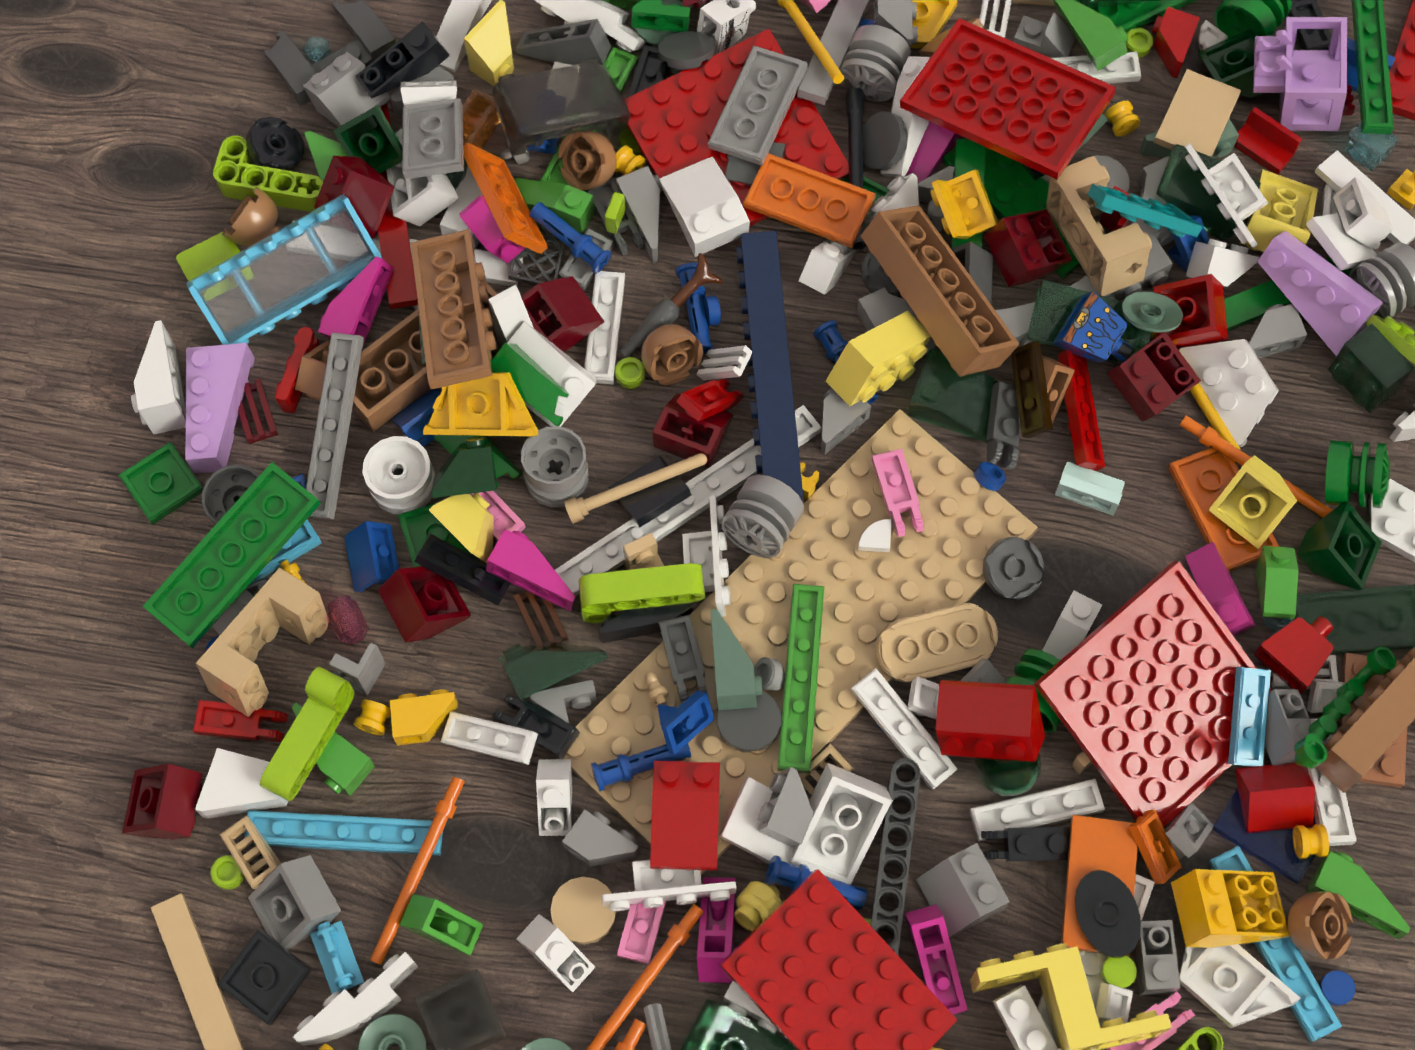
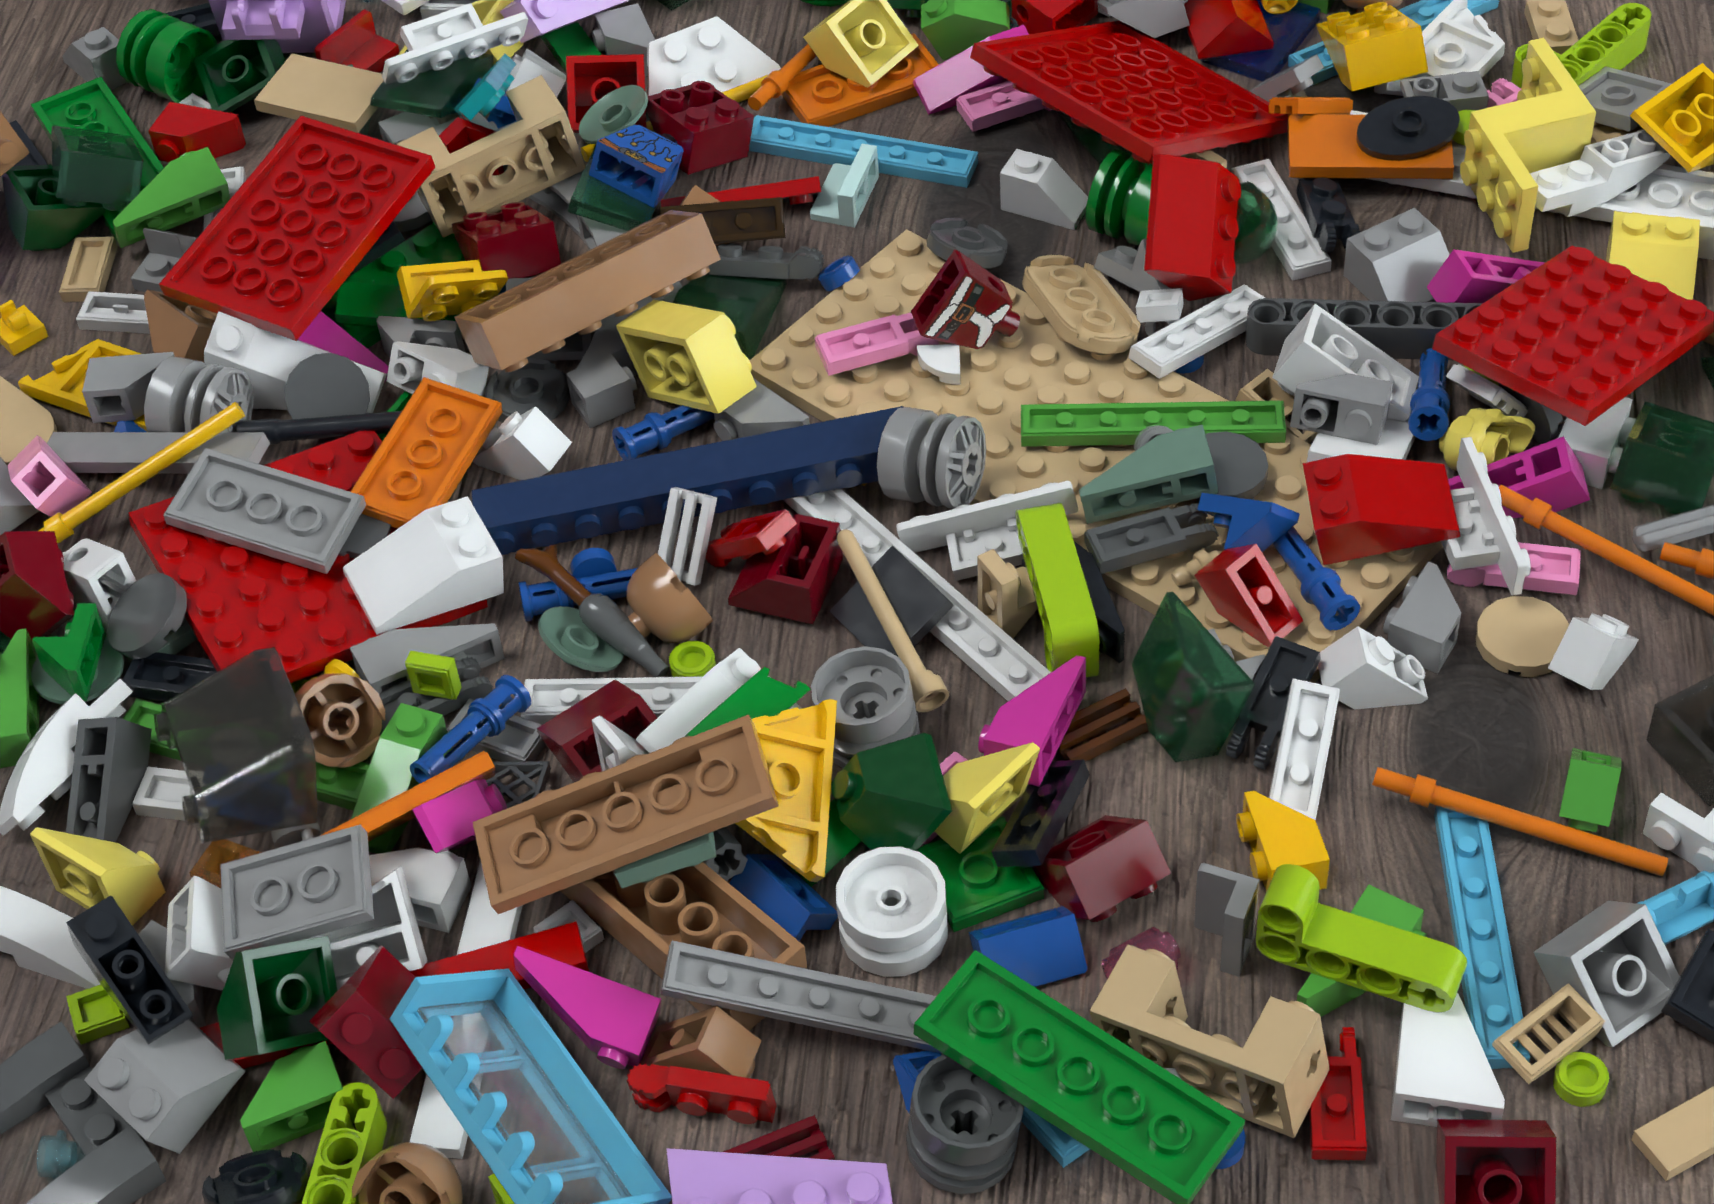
camera: 90 degrees left, 20 degrees down
(618, 716) = (1249, 593): none -> red slope
(635, 289) = (575, 642): none -> sand green dish
(911, 549) = (965, 305): none -> dark red torso
(1138, 503) = (841, 146): none -> medium azure tile
(1249, 716) = (1137, 35): medium azure tile -> none

